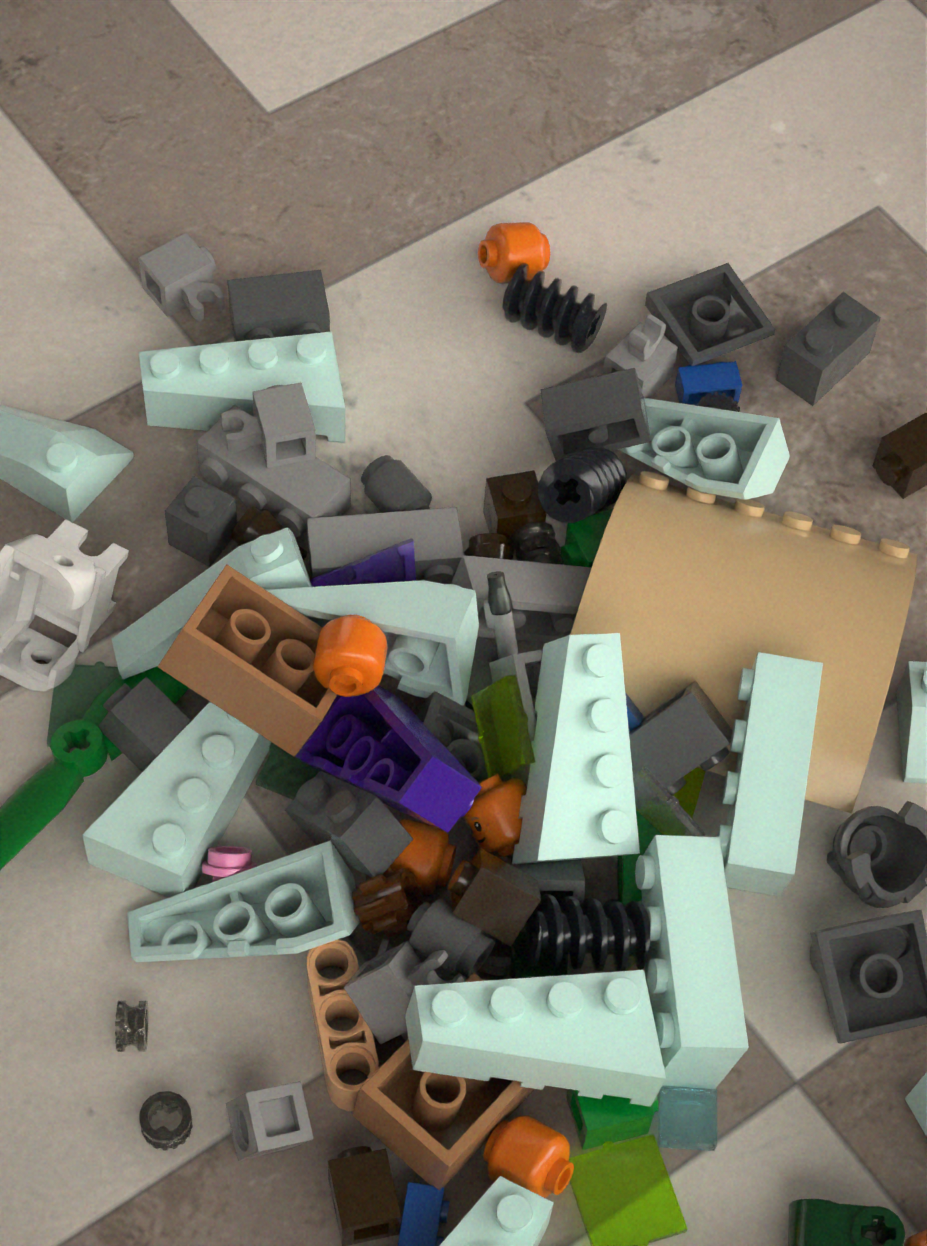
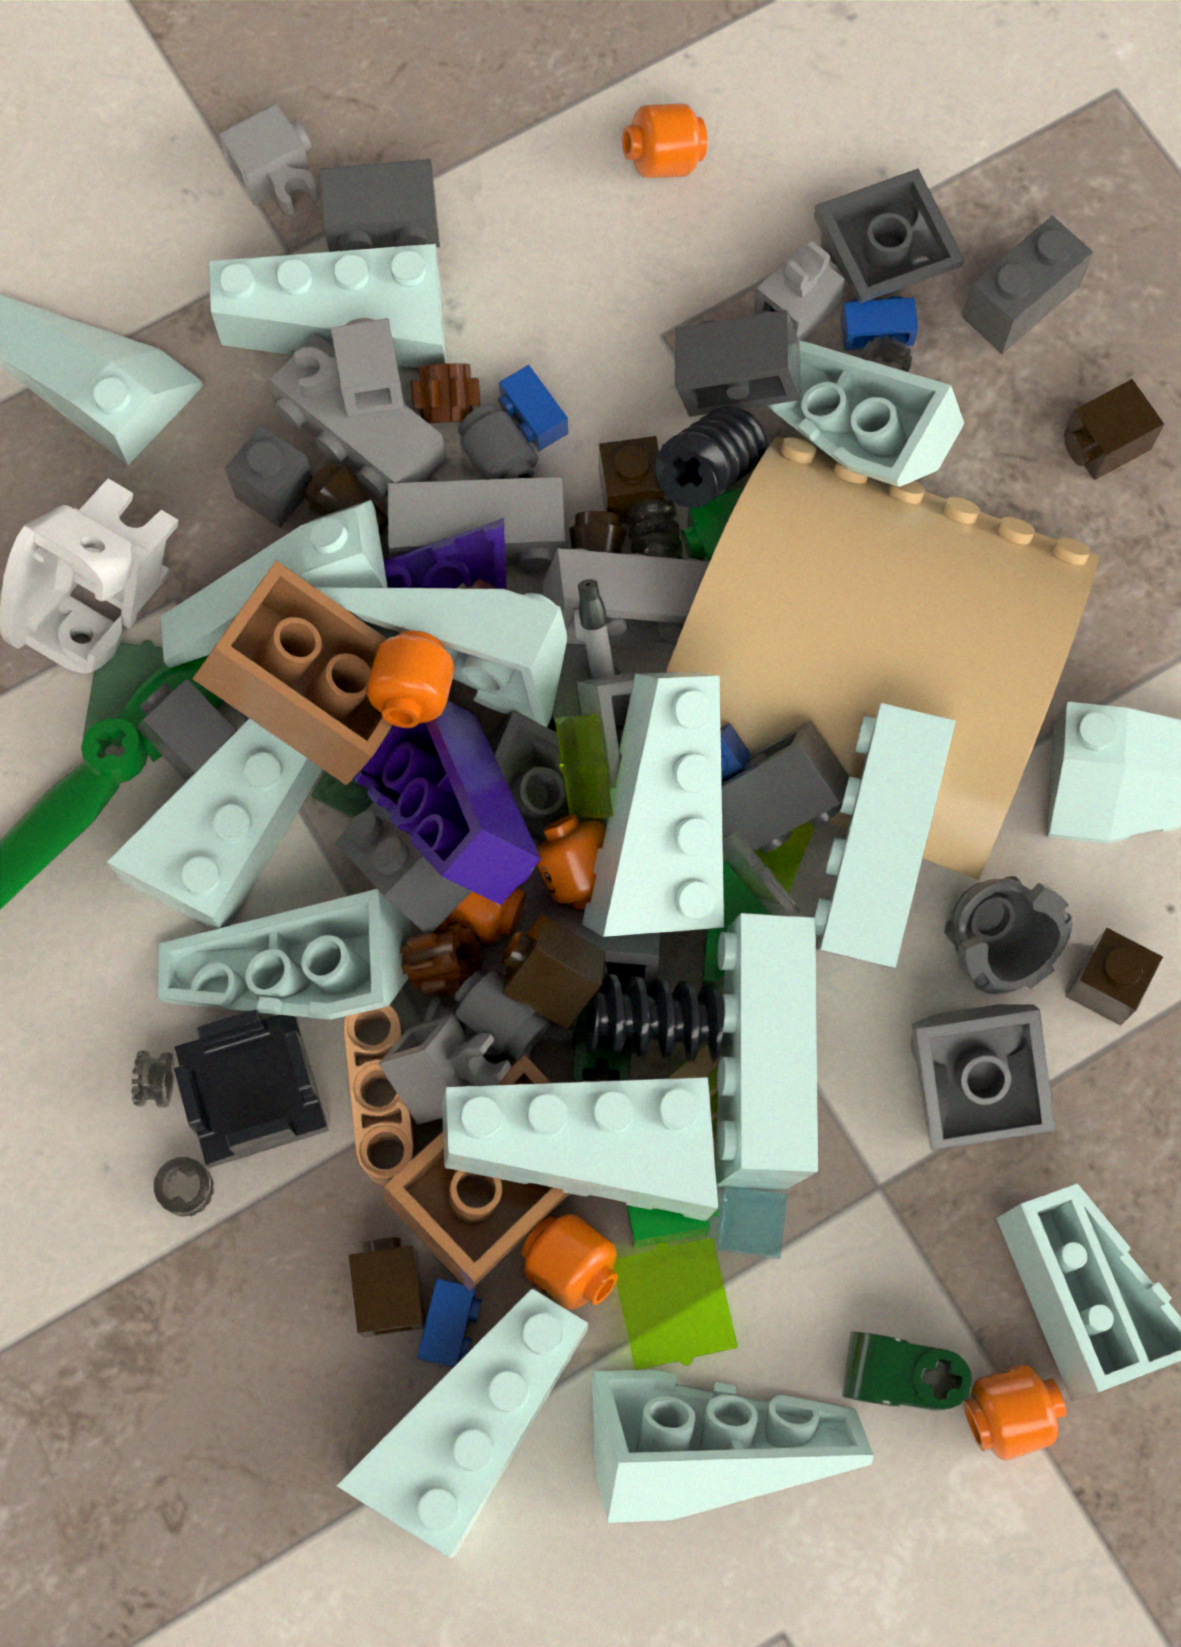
camera: 10 degrees right, 15 degrees up
(221, 1027) = (248, 1086): none -> black panel
(227, 861) = (271, 895): bright pink plate -> none
(269, 1120) = (290, 1203): light grey brick -> none
(348, 447) = (445, 392): none -> reddish brown gear
(424, 459) = (533, 408): none -> blue piece
(551, 310) = (701, 220): black piece -> none

